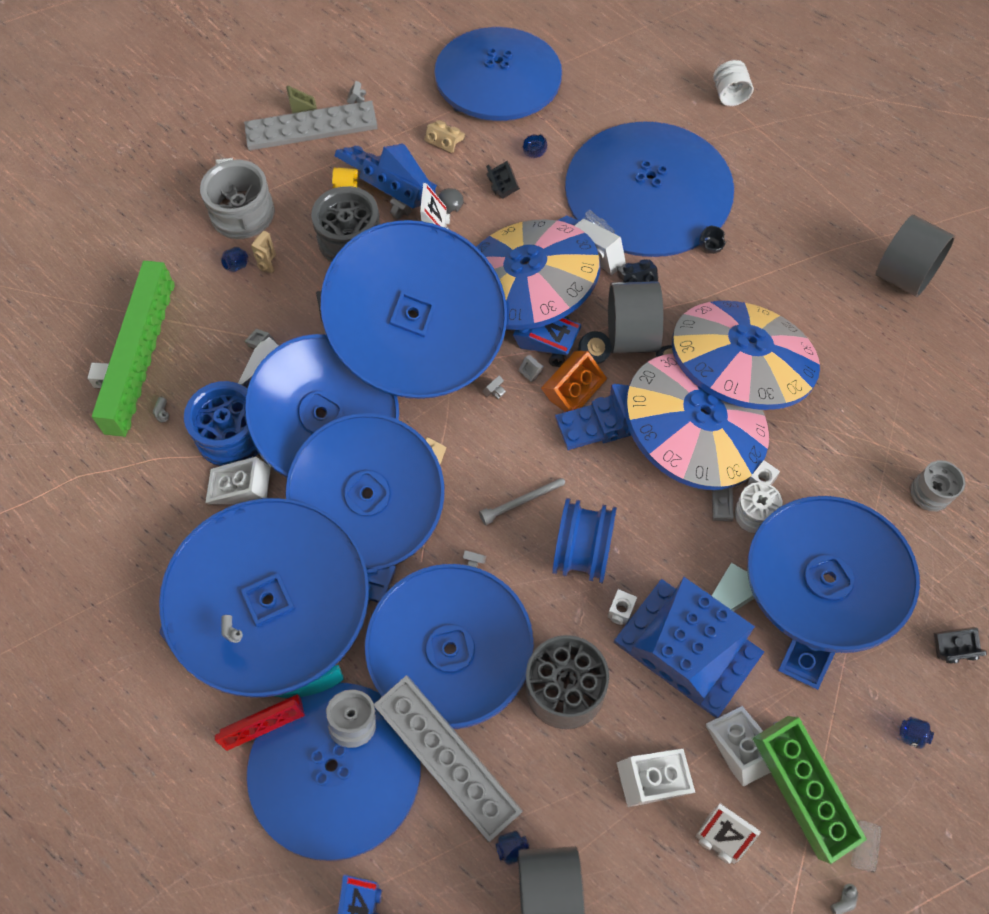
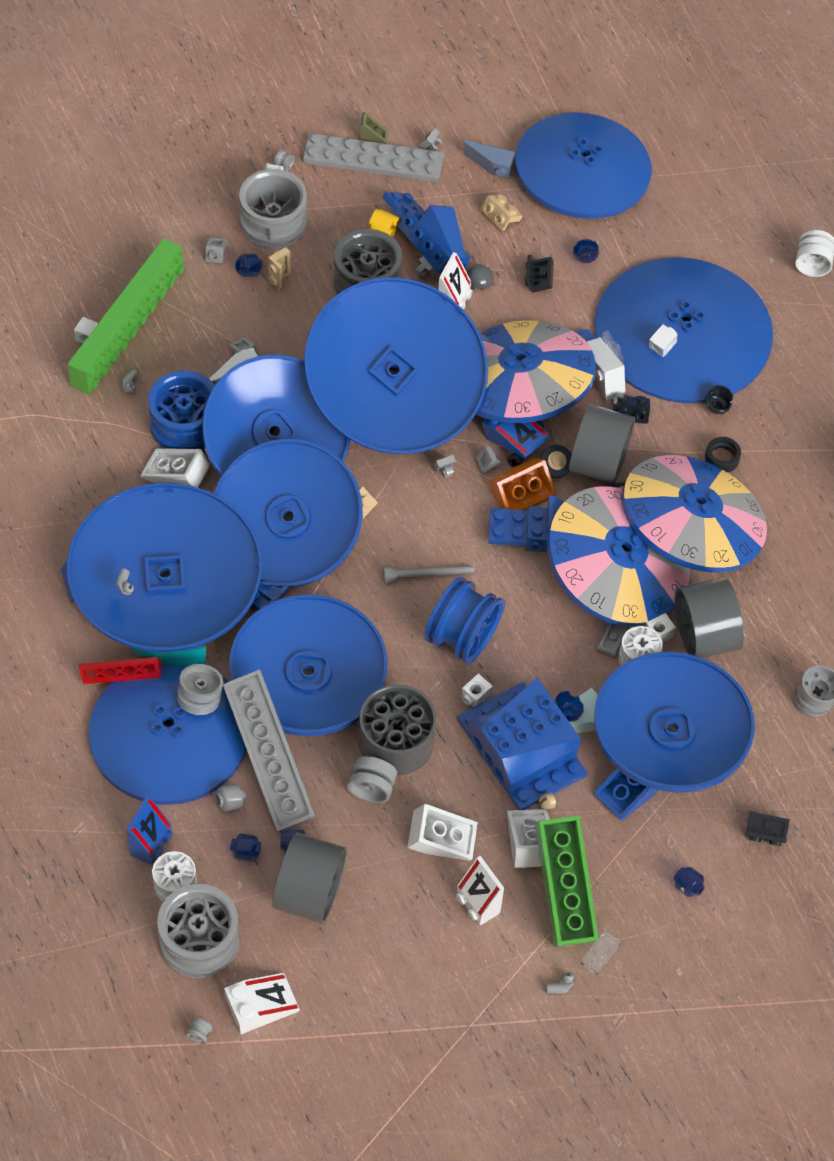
camera: 15 degrees right, 5 degrees down
(198, 255) = (215, 250): none -> light grey bracket
(230, 152) = (284, 160): none -> light grey wheel
(415, 92) = (491, 158): none -> sand blue slope
(425, 823) = (229, 797): none -> light grey head
(464, 875) = (245, 847): none -> clear blue head
(474, 558) = (362, 605): light grey tile -> none
(564, 747) = (372, 780): none -> light grey wheel
(642, 202) = (663, 340): none -> white brick
(724, 592) = (570, 706): none -> clear blue hair
(739, 277) = (723, 443): none -> black tyre
(741, 697) = (547, 801): none -> tan hinge
(812, 452) = (709, 618): none -> dark grey wheel

